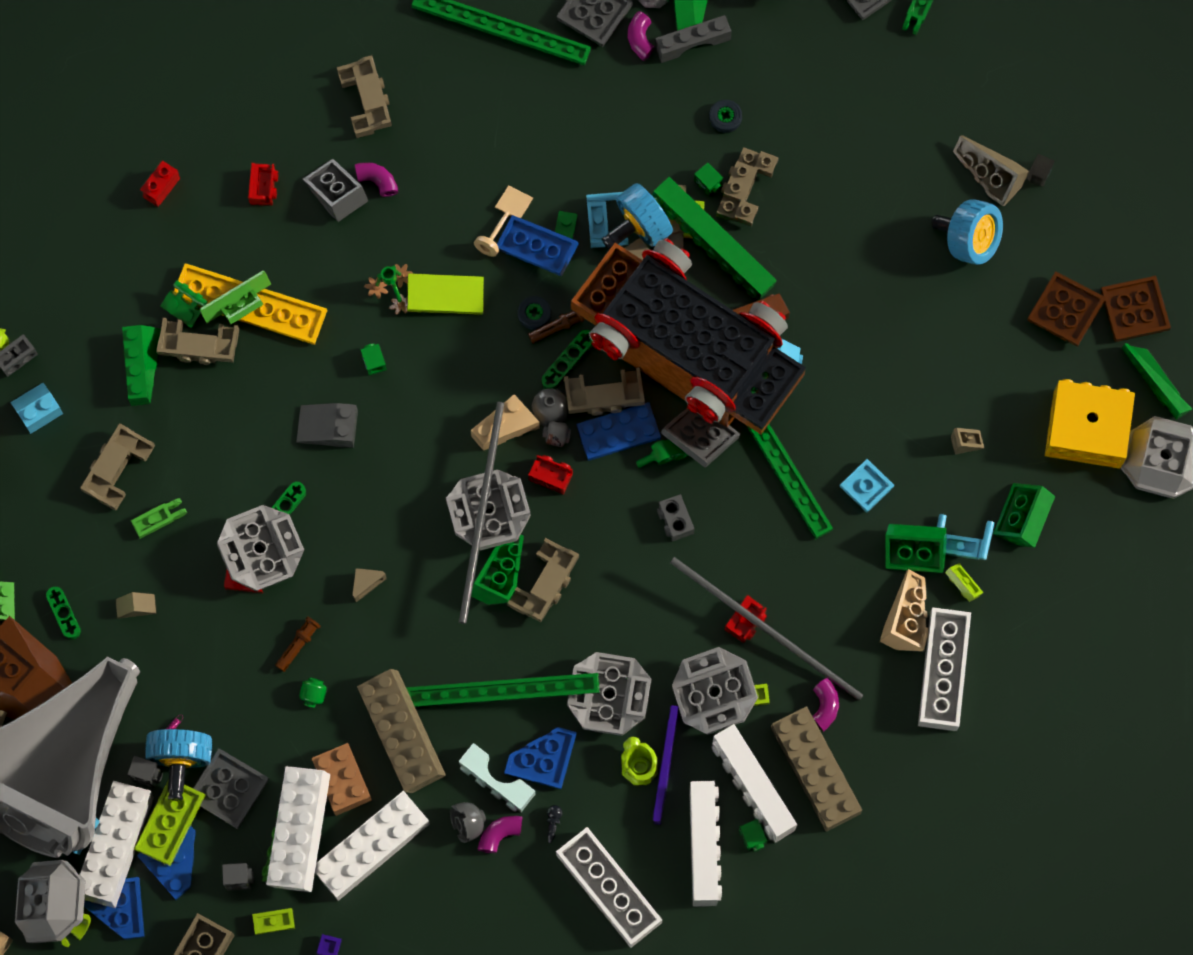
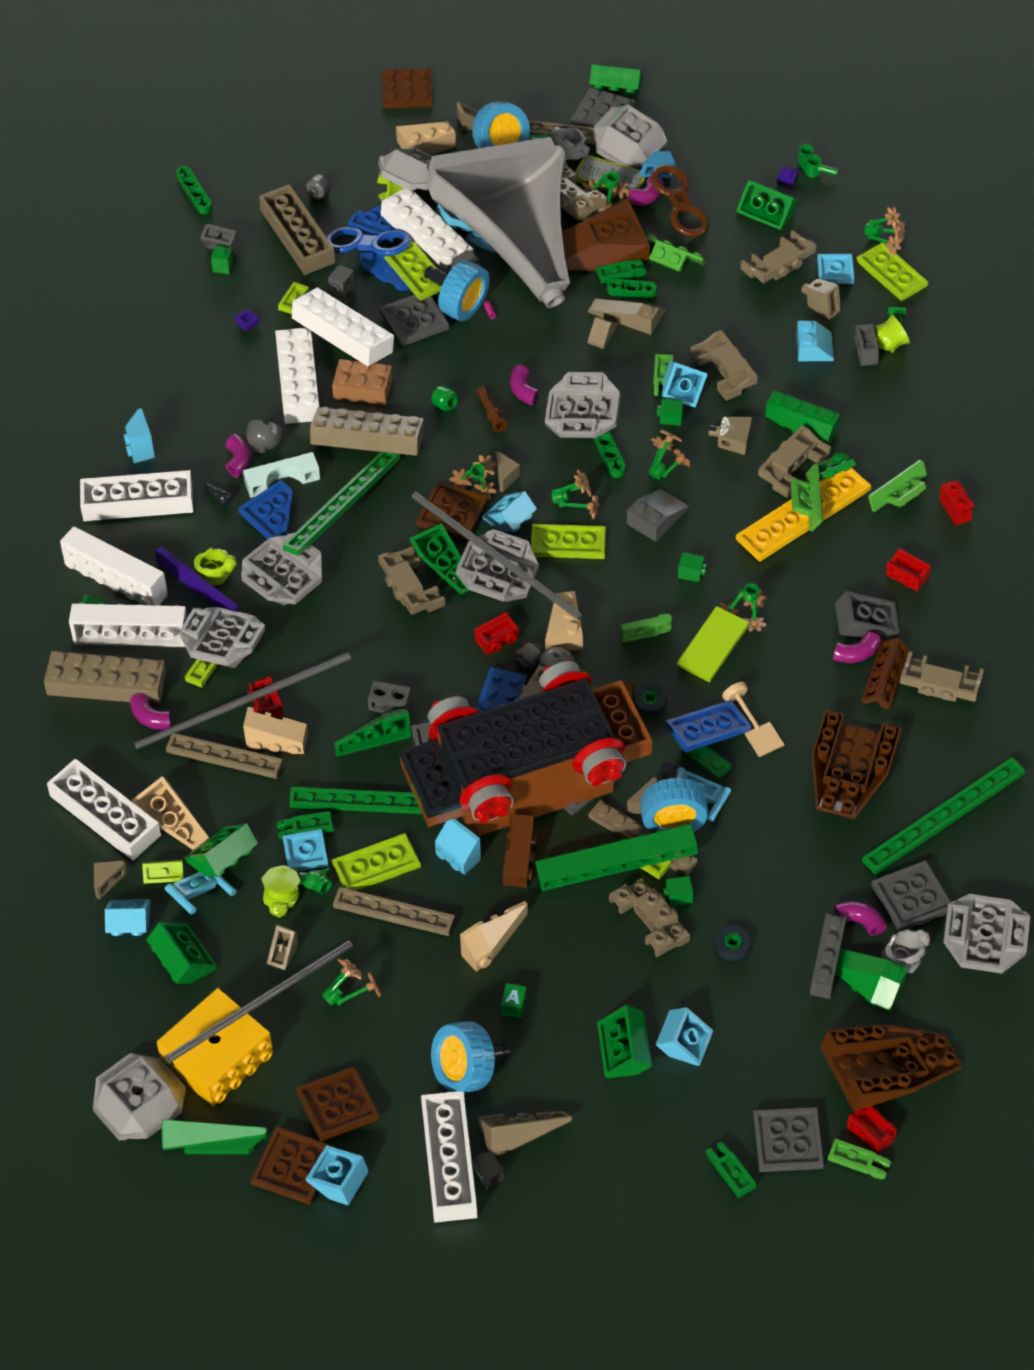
camera: 125 degrees right, 20 degrees down
(49, 637) = (621, 270): none -> green hinge
(94, 590) = (631, 314): none -> dark tan wedge
(158, 895) = (369, 242): none -> blue bar
(163, 487) = (683, 383): none -> medium azure slope
(172, 235) = (900, 488): none -> bright green bracket
(195, 413) = (733, 433): none -> dark tan torso
(202, 481) = (670, 412): none -> green brick
(255, 633) = (520, 386): none -> magenta cylinder
(278, 451) = (657, 468): none -> plant
(363, 515) = (562, 494): none -> plant
(386, 138) = (889, 673): none -> reddish brown fence
(397, 590) = (477, 472): none -> medium nougat plant
(407, 482) = (568, 541): none -> lime tile
(409, 549) = (510, 512): none -> medium azure slope
(437, 599) = (457, 503): none -> reddish brown plate
(462, 357) = (645, 628): none -> bright green hinge
(501, 116) = (850, 763): none -> reddish brown wedge
(544, 933) = (138, 438): none -> medium azure slope
(704, 497) = (380, 731): none -> green wedge
(776, 584) = (274, 734): none -> tan wedge
(822, 615) = (224, 755): none -> dark tan plate
(834, 101) = (684, 1036): none -> medium azure slope
(837, 426) = (376, 863): none -> lime tile
(842, 501) = (306, 823): none -> green hinge
(853, 290) = (485, 940): none -> tan wedge
(870, 139) = (624, 1043): none -> green slope
(874, 380) = (394, 911): none -> dark tan plate
(888, 458) = (316, 880): none -> green animal
(889, 240) = (513, 1000): none -> green brick
(917, 476) = (280, 889): none -> lime piece
(977, 374) = (333, 992): none -> plant
(999, 624) = (107, 876): none -> dark tan slope
(1021, 580) = (127, 917): none -> medium azure slope
(1037, 406) = (258, 1002): none -> dark grey piece
(1053, 200) = (449, 1156): none -> white brick
(1123, 268) = (338, 1174): none -> medium azure slope

